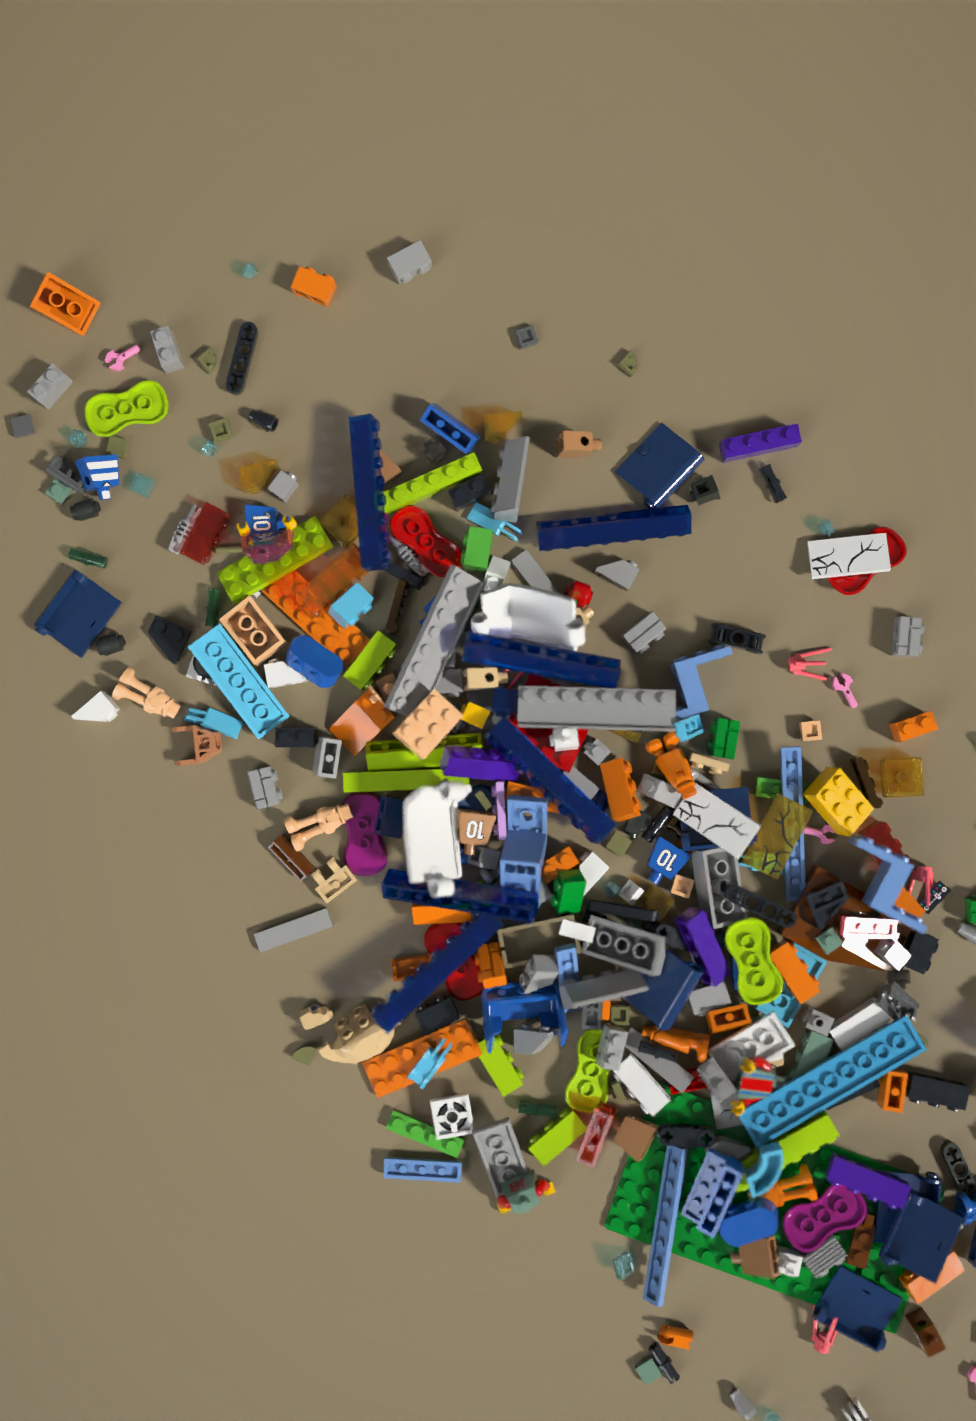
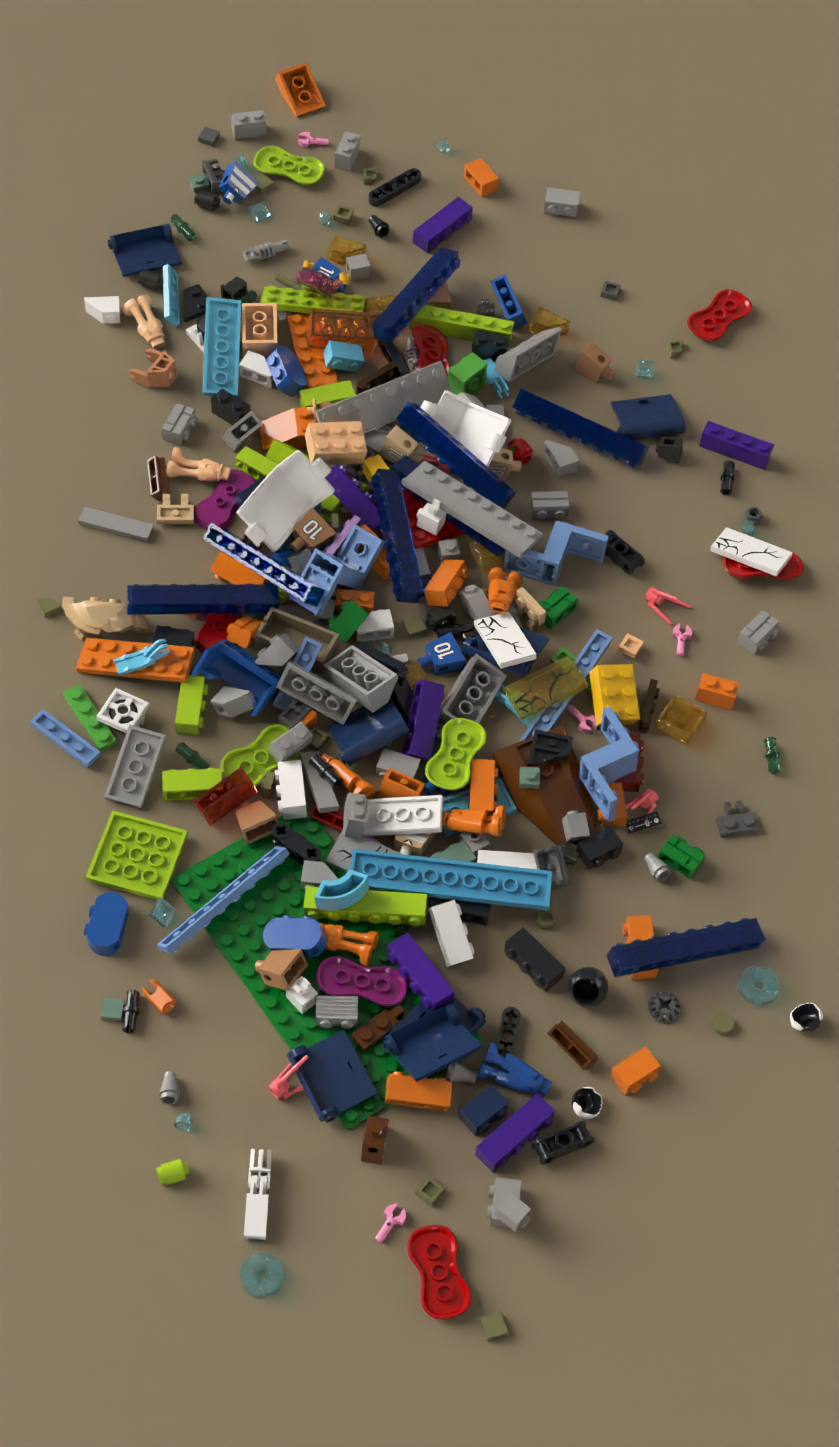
camera: 30 degrees right, 30 degrees down
(142, 648) = (171, 295): none -> medium azure tile
(194, 598) = (234, 289): none -> pearl dark grey brick
(205, 534) = (277, 260): clear red brick -> none
(215, 720) = (184, 366): medium azure arm -> none
(314, 1016) = (79, 585): tan rock -> none
(321, 374) = (442, 224): none -> dark purple brick
(523, 1193) = (129, 794): sand green torso -> none
(565, 1231) = (136, 855): none -> lime plate
(577, 931) = (332, 645): white sticker -> none
(589, 1307) = (107, 923): none -> blue brick
(621, 412) = (644, 369): none -> clear light blue plate
(647, 281) = (713, 321): none -> red plate
(682, 886) = (442, 678): light nougat plate -> none
(689, 727) = (534, 573): medium azure plate -> none
(713, 1191) = (284, 889): brick -> none
(754, 1082) = (387, 830): torso -> none
(760, 905) = (495, 717): black beam -> none
(810, 1013) = (475, 821): none -> orange piece
(827, 509) = (753, 511): none -> dark grey plate
(862, 1123) = (451, 933): none -> white brick
(868, 927) = (569, 789): plate -> none
(892, 1090) = (497, 928): orange brick -> none

